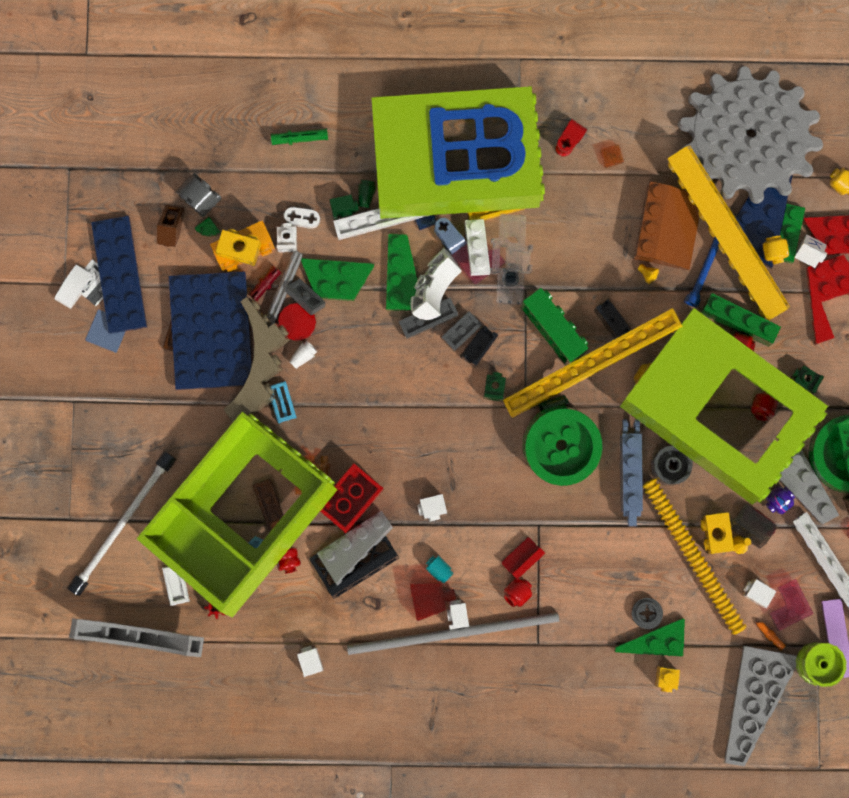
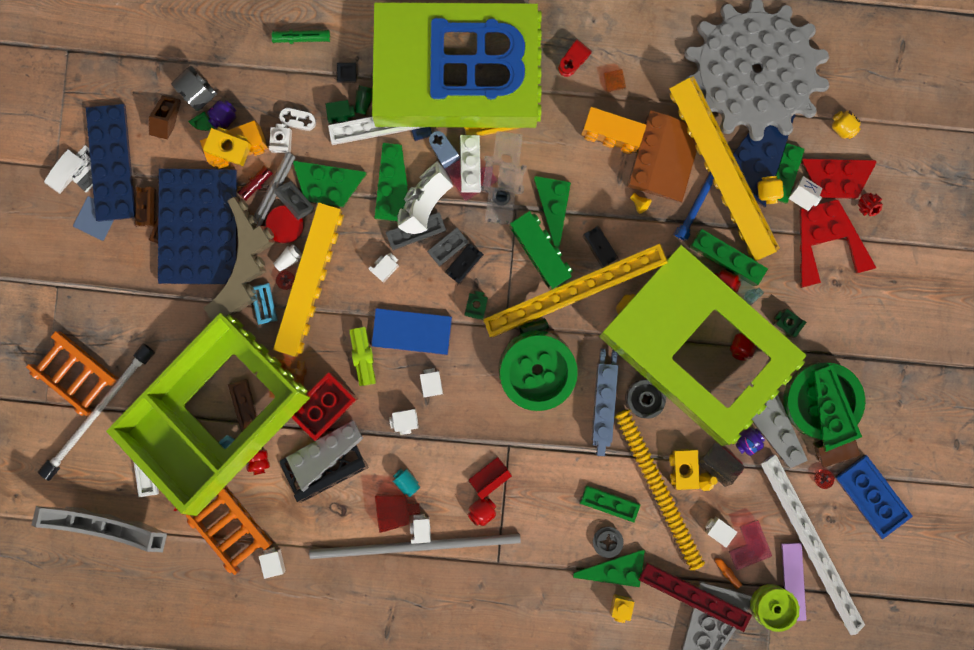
camera: 10 degrees right, 5 degrees up
(97, 467) = (90, 366): none -> orange fence
(156, 315) = (145, 207): none -> reddish brown hinge
(227, 218) = (221, 114): none -> dark purple head
(282, 627) = (248, 526): none -> orange fence
(302, 377) = (285, 280): none -> clear red tile
(324, 375) = (308, 279): none -> yellow brick
(347, 168) = (347, 72): none -> black tile
(385, 446) = (362, 356): none -> lime piece
(400, 355) = (384, 267): none -> white brick
(432, 418) = (411, 331): none -> blue tile
(456, 467) = (431, 383): none -> white brick
(562, 275) = (554, 201): none -> green wing
(615, 204) = (613, 130): none -> light orange brick
(645, 574) = (610, 503): none -> green tile
(740, 661) = (695, 597): none -> dark red tile
(769, 354) = (752, 295): none -> clear light blue tile

